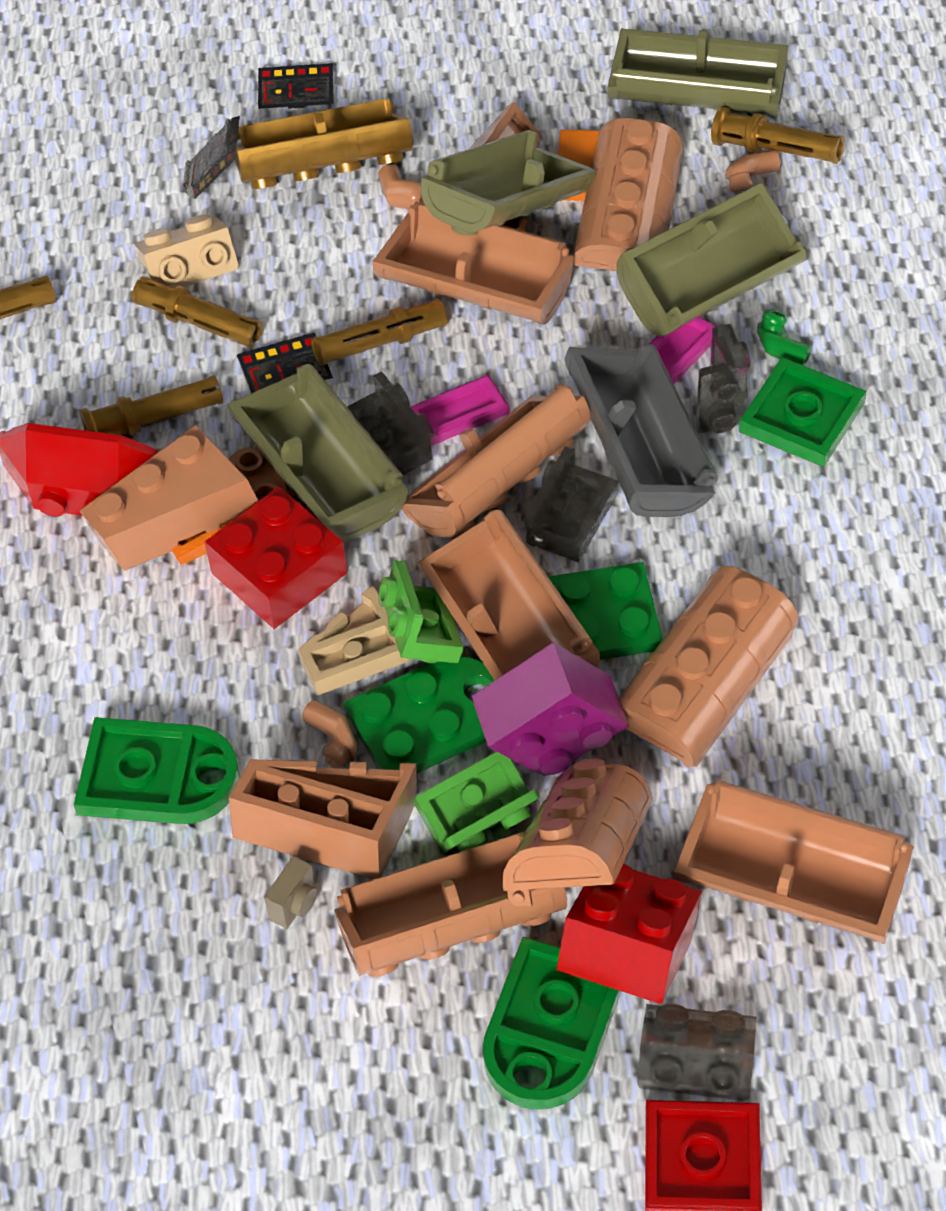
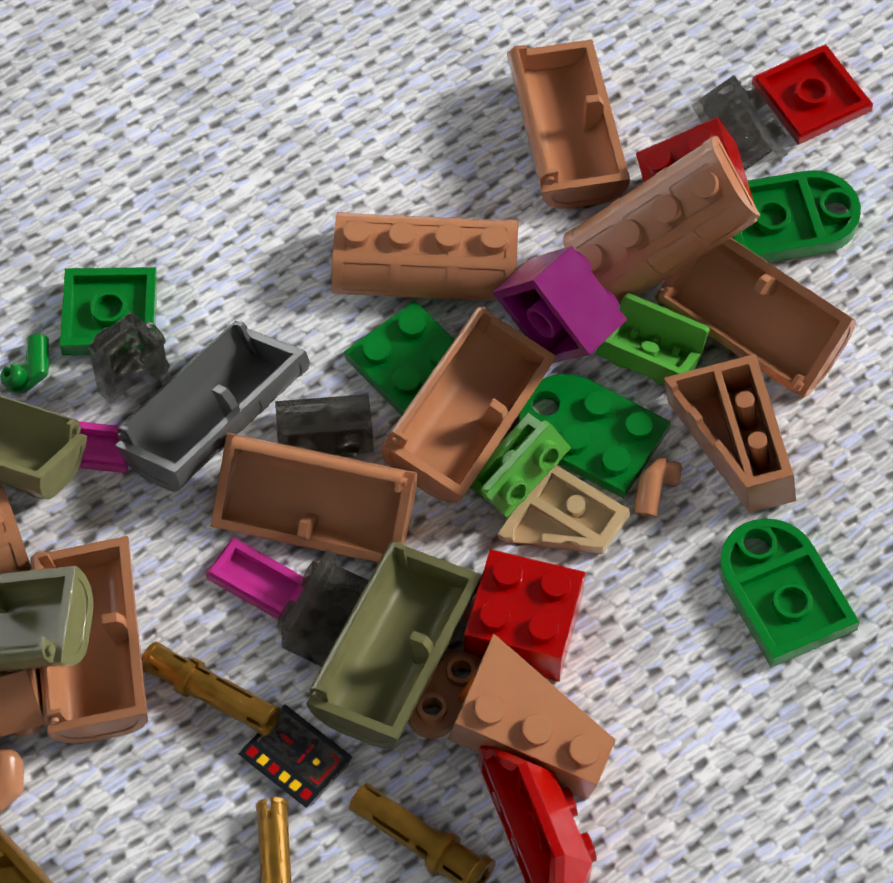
camera: 125 degrees left, 5 degrees up
(291, 893) = (816, 424): dark tan plate -> none

